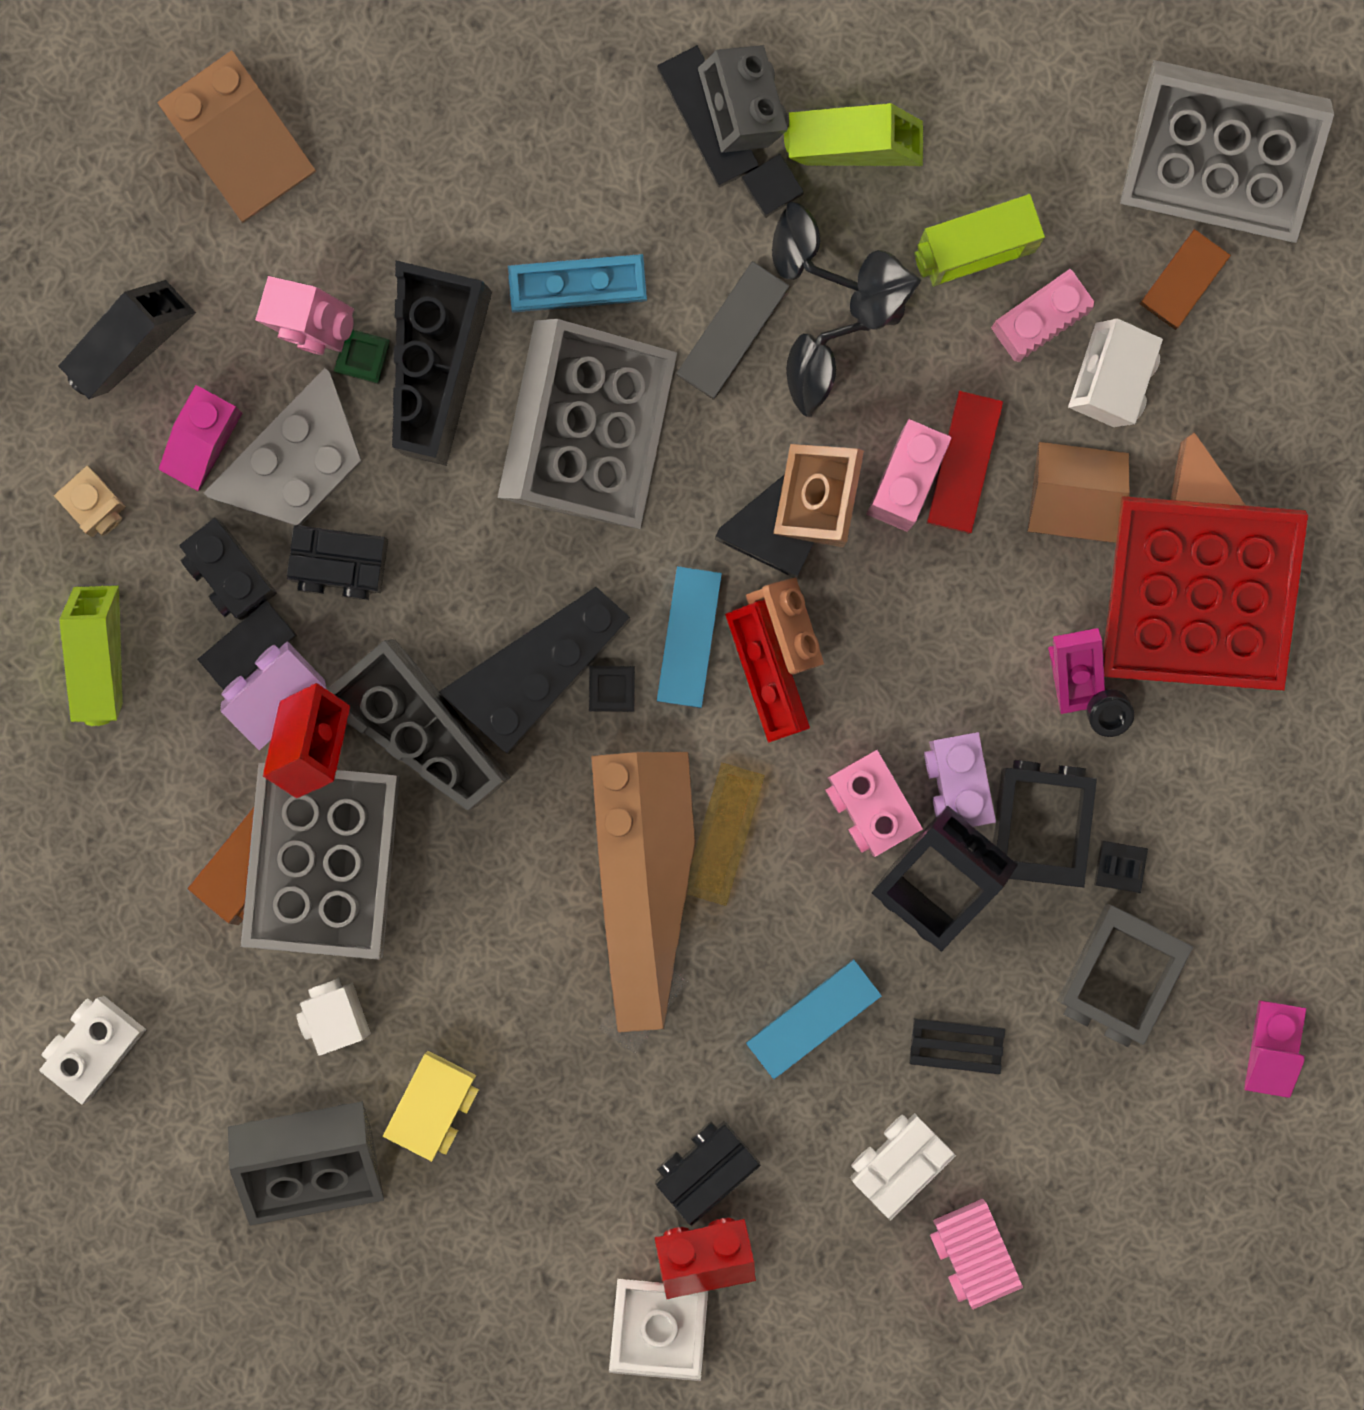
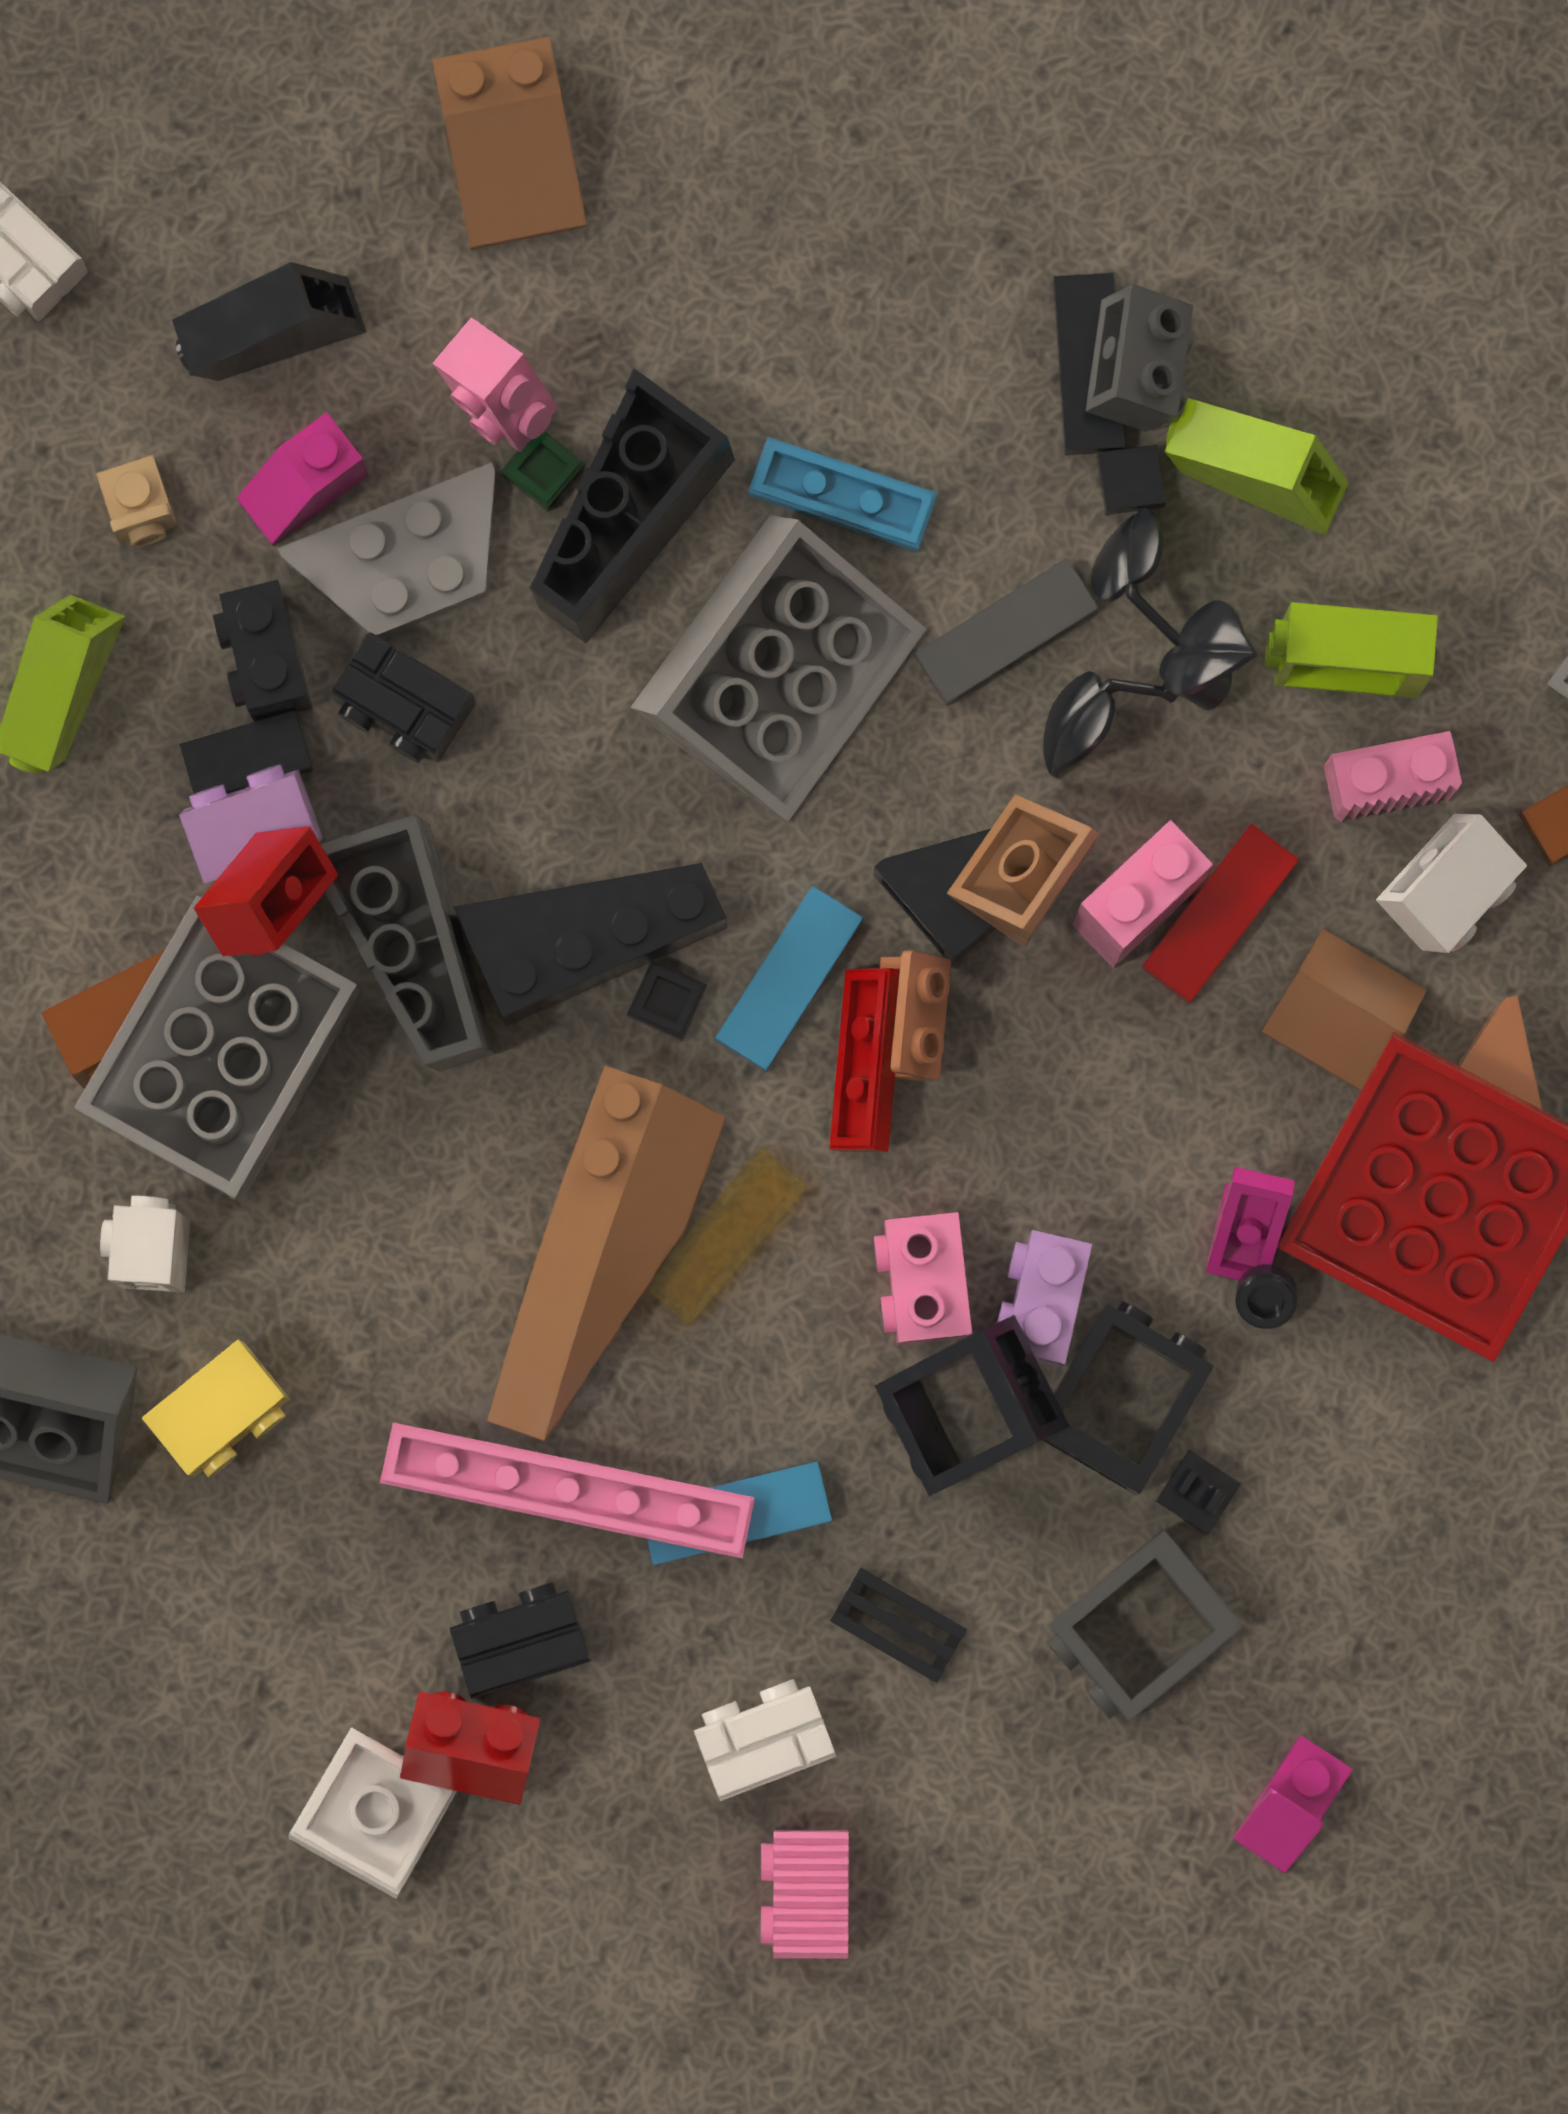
camera: 25 degrees right, 5 degrees down
(693, 1055) = (567, 1490): none -> bright pink tile

